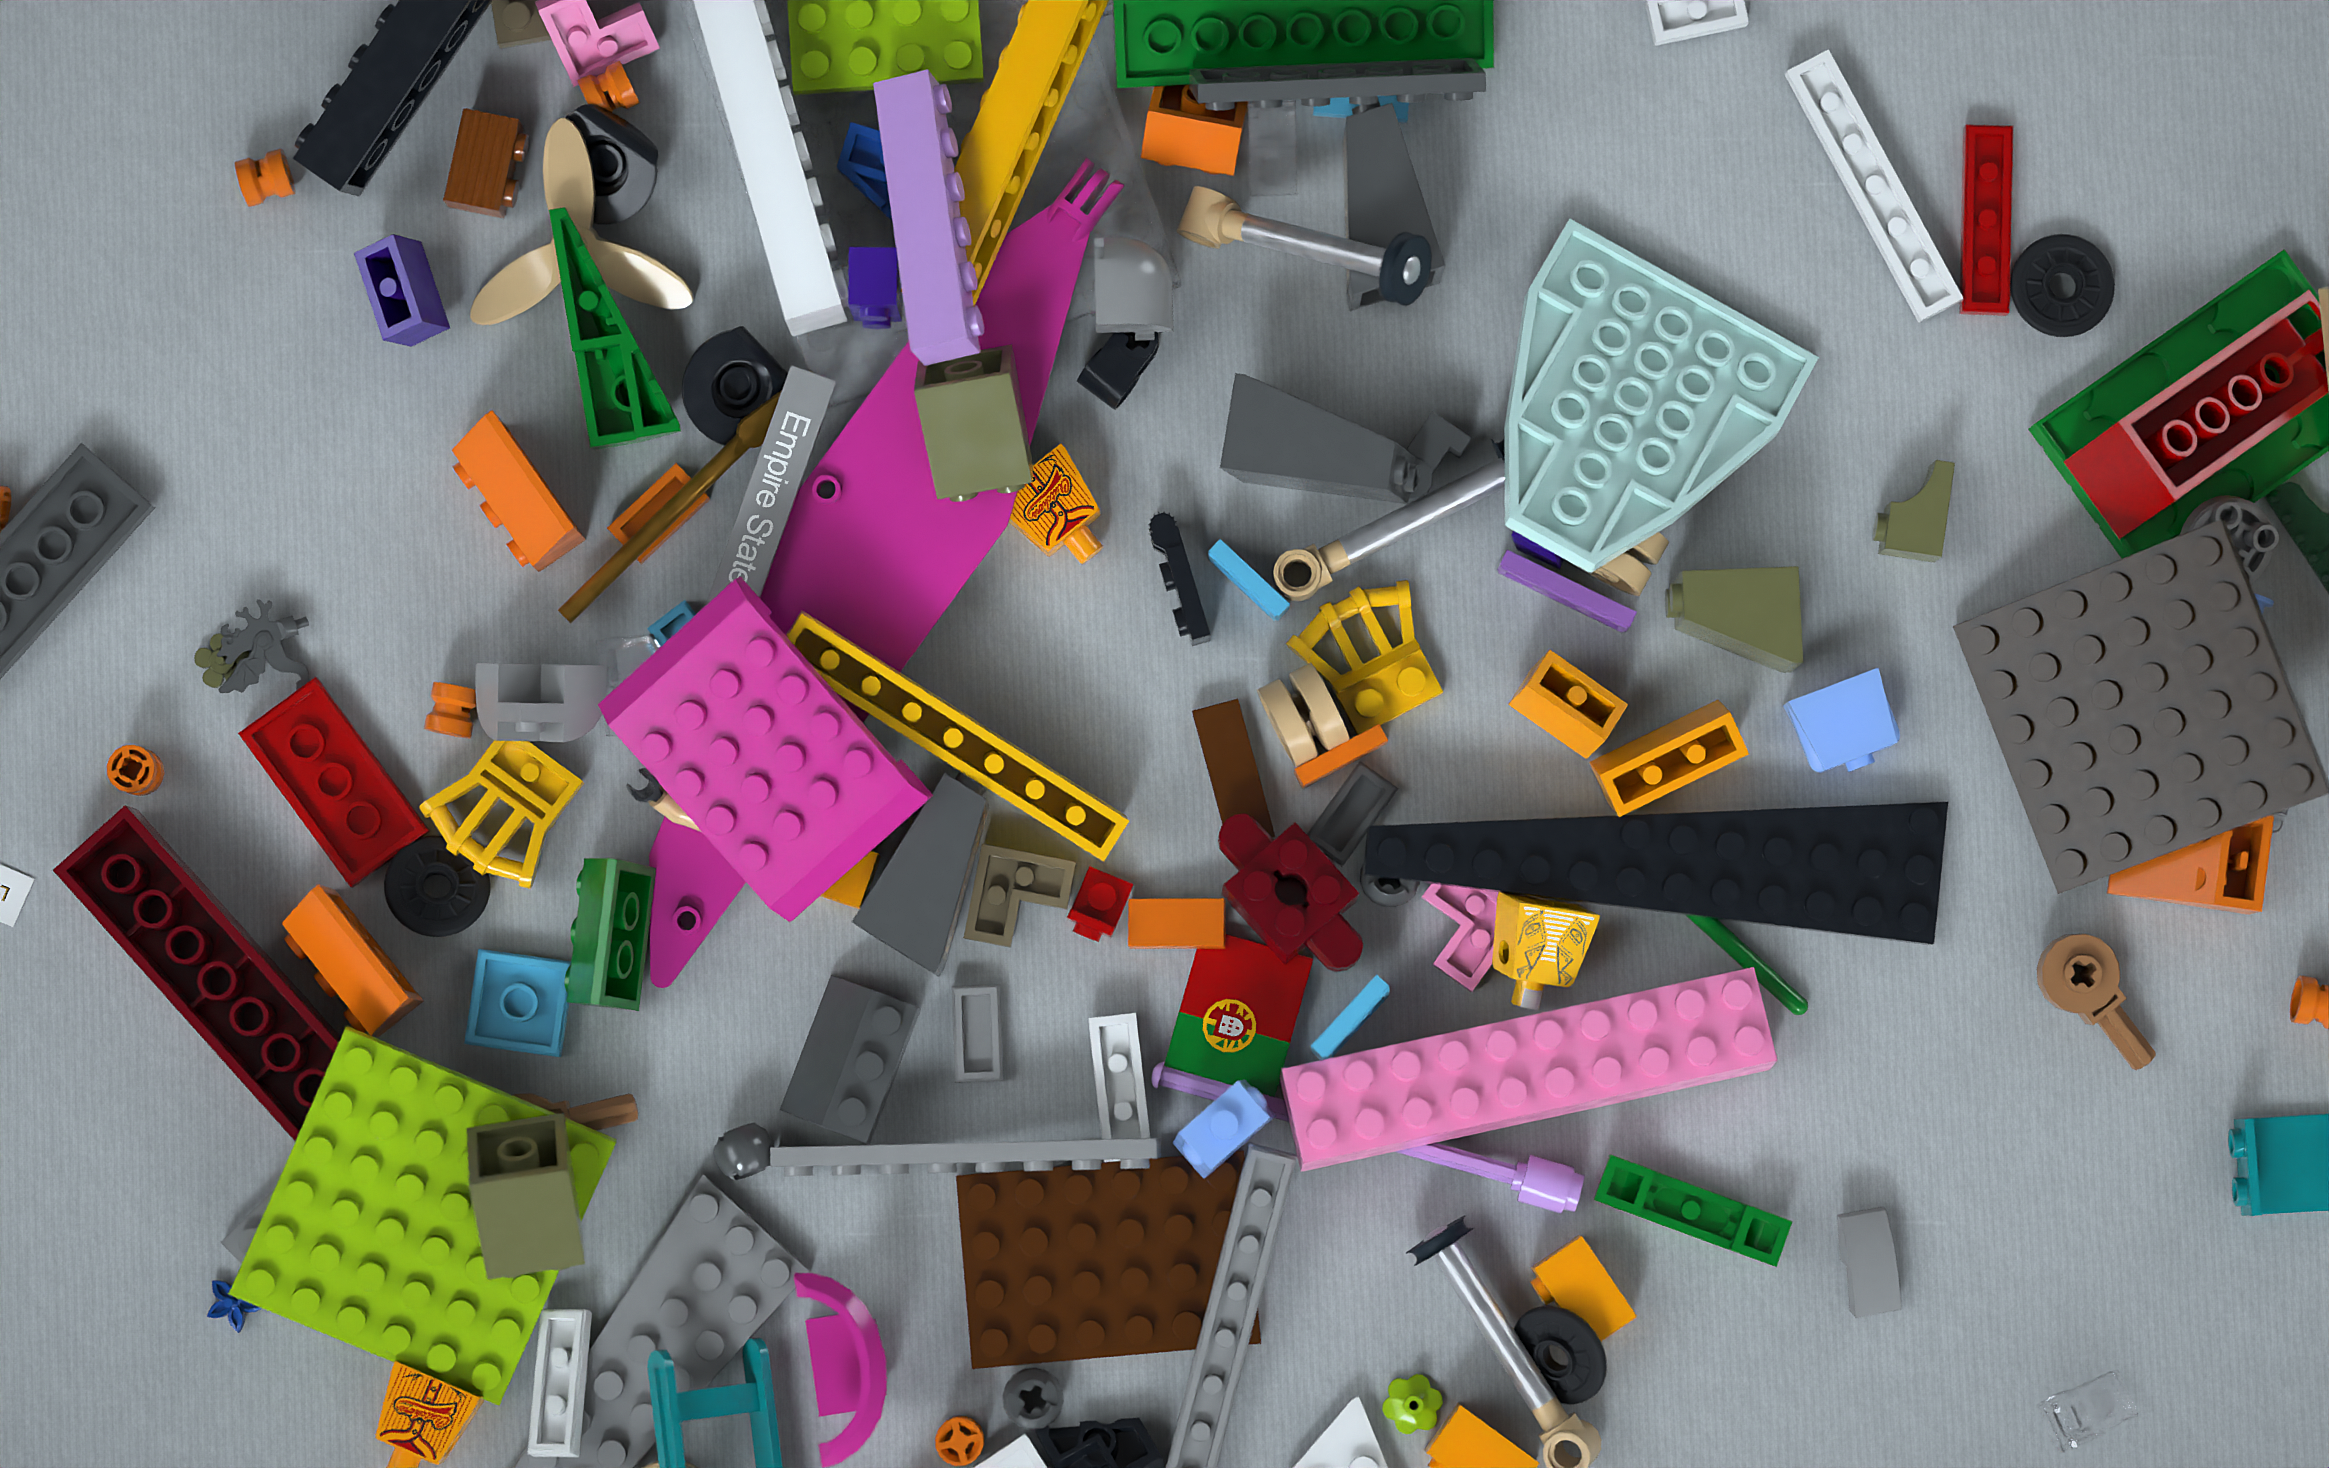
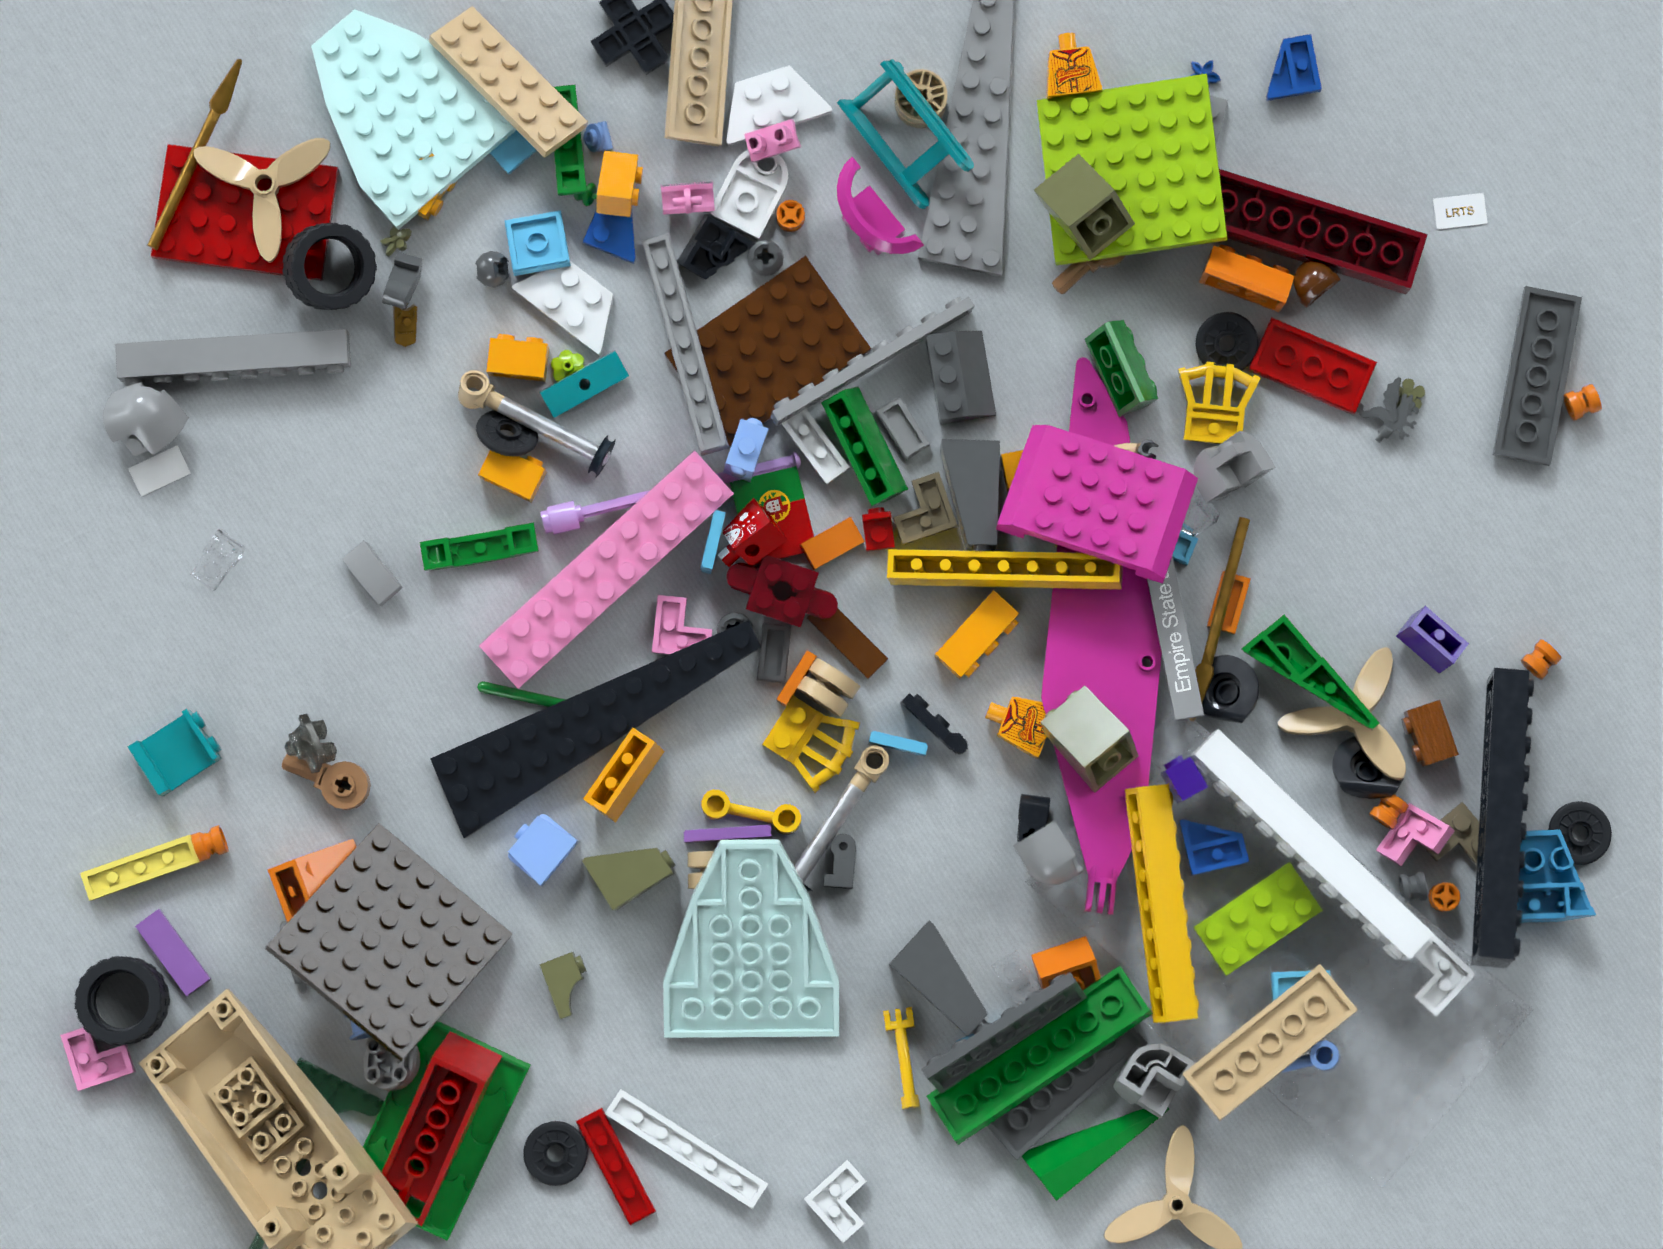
camera: 145 degrees right, 0 degrees up
(95, 1231) = (1294, 69): none -> blue wing
(143, 773) = (1414, 317): orange wheel -> none
(258, 900) = (1313, 280): none -> reddish brown hat
(451, 710) = (1273, 436): orange wheel -> none
(515, 494) = (1308, 567): orange slope -> none
(518, 1003) = (1149, 307): medium azure tile -> none
(559, 1383) = (1012, 128): white tile -> none
(743, 1151) = (987, 297): dark grey piece -> none
(927, 217) = (1177, 828): lavender brick -> none
(1045, 669) = (978, 635): none -> light orange brick
(1049, 1034) = (864, 445): none -> green brick
(1289, 995) = (751, 535): none -> red torso
(1303, 447) = (913, 827): dark grey slope -> none
(1401, 268) = (912, 943): piece -> none
(1435, 1362) = (568, 394): none -> teal tile
(1477, 571) = (717, 805): none -> yellow piece
(1519, 75) = (909, 1099): none -> yellow hinge
(1540, 943) = (636, 638): yellow torso -> none
(1568, 704) = (692, 773): light orange brick -> none
(2104, 1065) = (305, 743): none -> clear smoke hips

